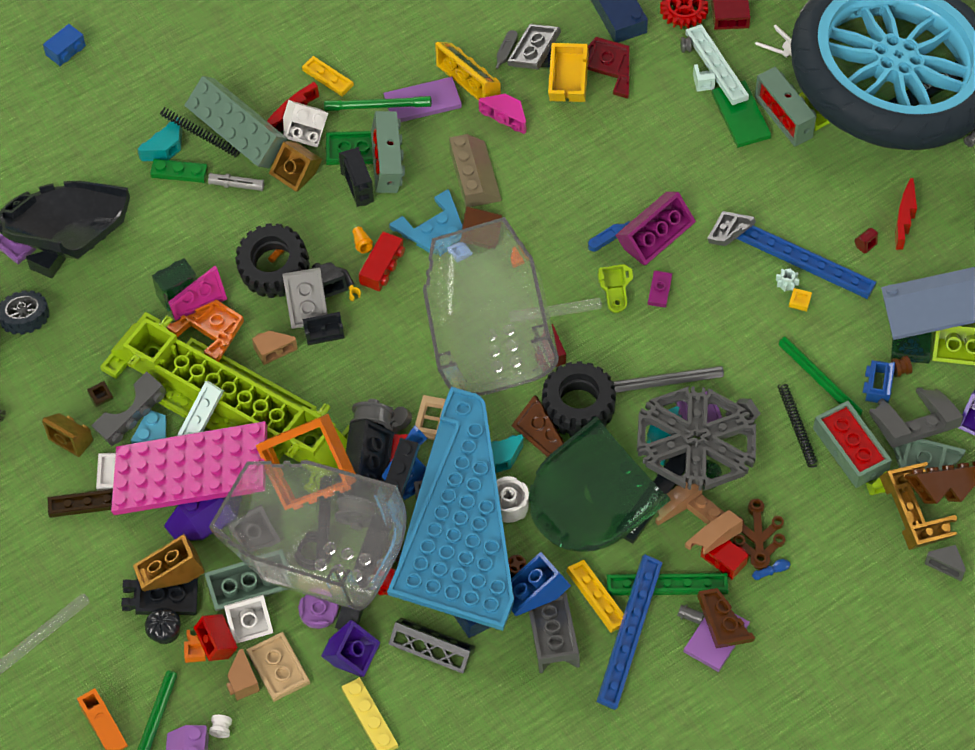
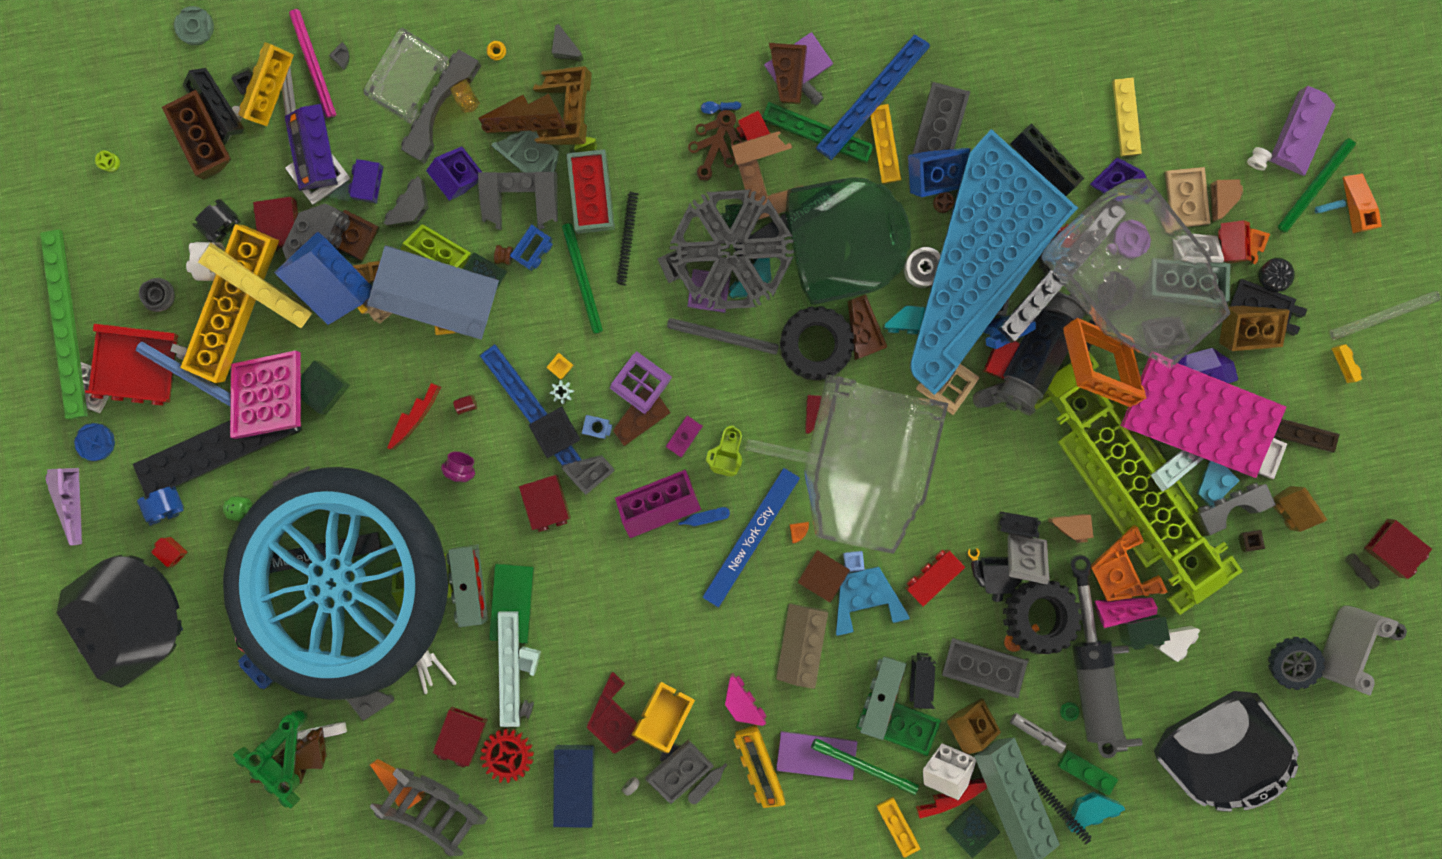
camera: 160 degrees left, 30 degrees up
(67, 580) = (1347, 365): none -> yellow plate
(130, 713) = (1326, 207): none -> medium azure piece
(139, 293) = (1179, 642): none -> white slope
(204, 236) = (1097, 676): none -> dark grey piece
(214, 207) = (1069, 711): none -> green plate
(263, 95) = (972, 830): none -> clear green tile
(305, 207) = (985, 668): none -> dark grey plate
(362, 241) = (943, 610): light orange cone -> none
(560, 234) = (751, 537): none -> blue tile
(569, 23) = (630, 786): none -> light grey tile
(706, 291) = (636, 422): none -> reddish brown wing
(716, 326) = (630, 396): none -> medium lavender piece
(747, 261) = (588, 427): none -> medium blue brick
(754, 192) = (545, 503): none -> dark red brick
(776, 244) = (554, 432): none -> black plate
(843, 188) = (458, 467): none -> magenta piece

